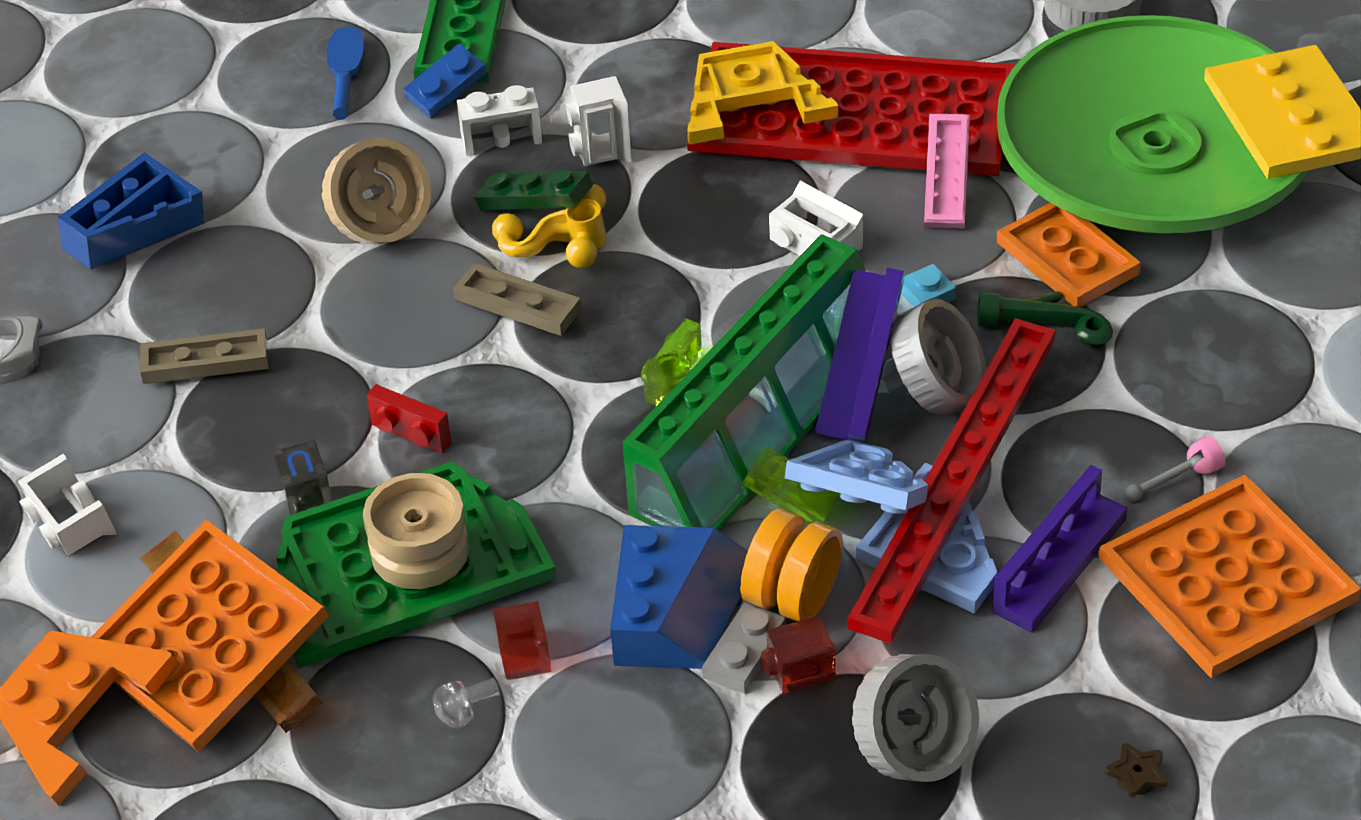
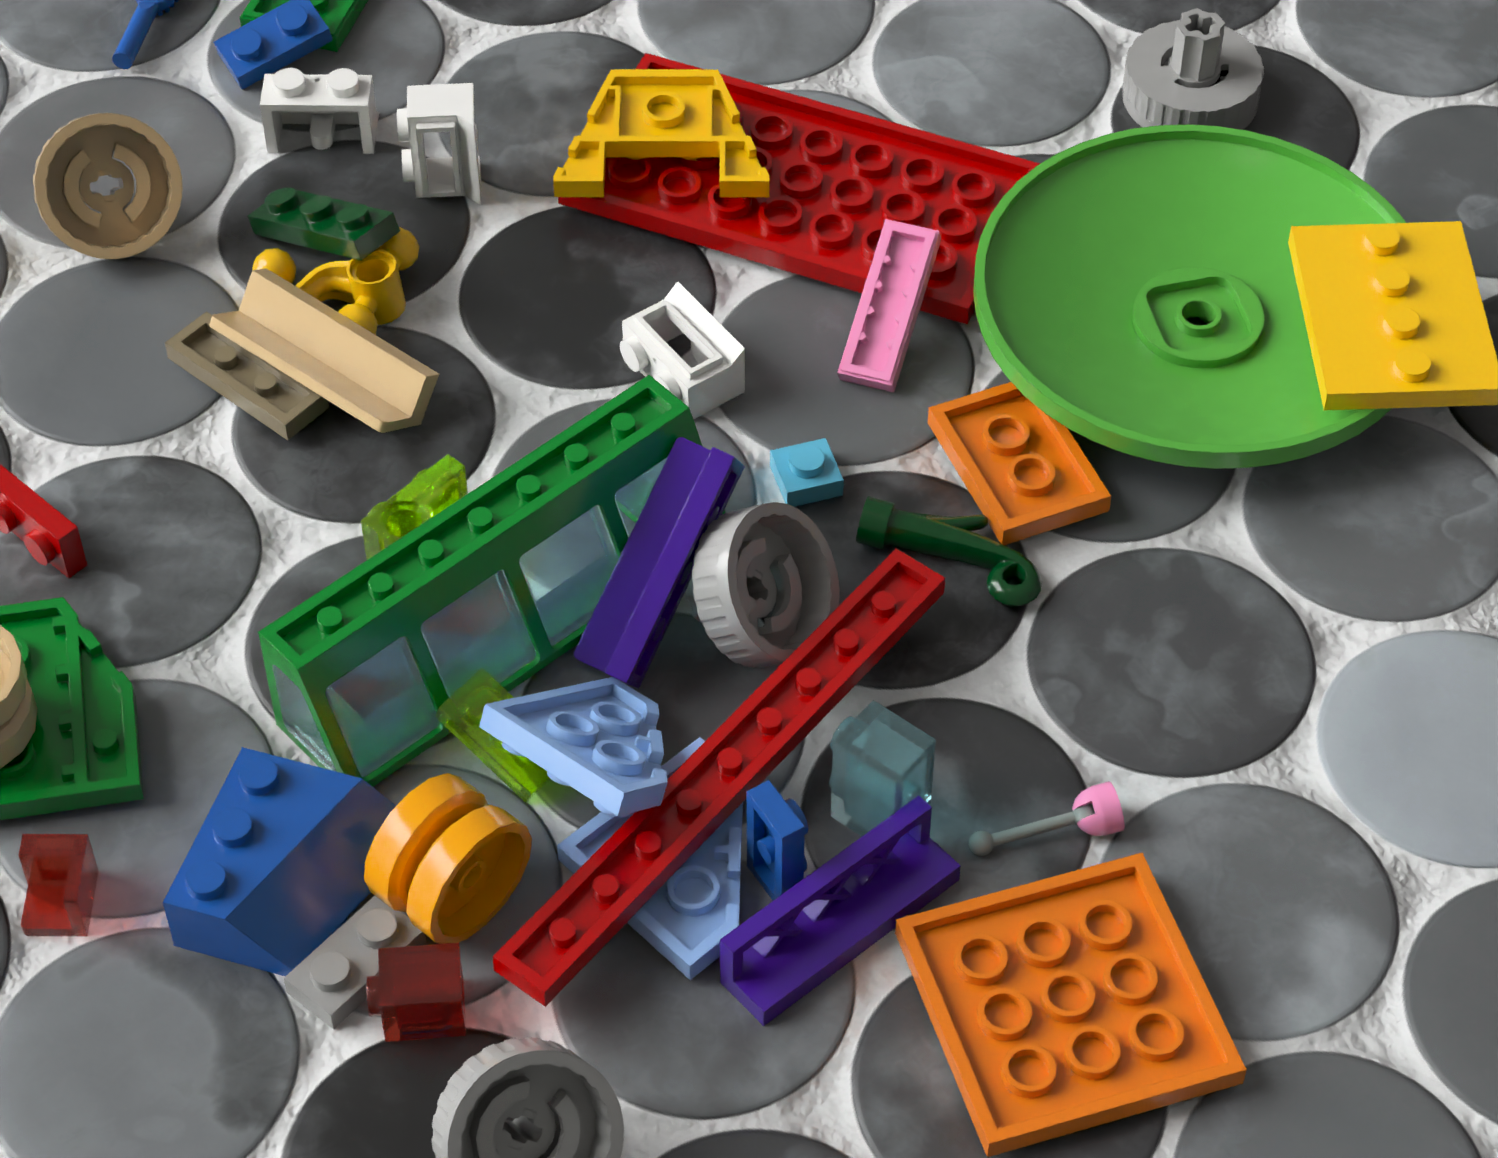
camera: 10 degrees right, 5 degrees up
(572, 271) = (329, 353): none -> tan panel
(1006, 512) = (775, 839): none -> blue plate
(1058, 454) = (878, 767): none -> clear light blue brick

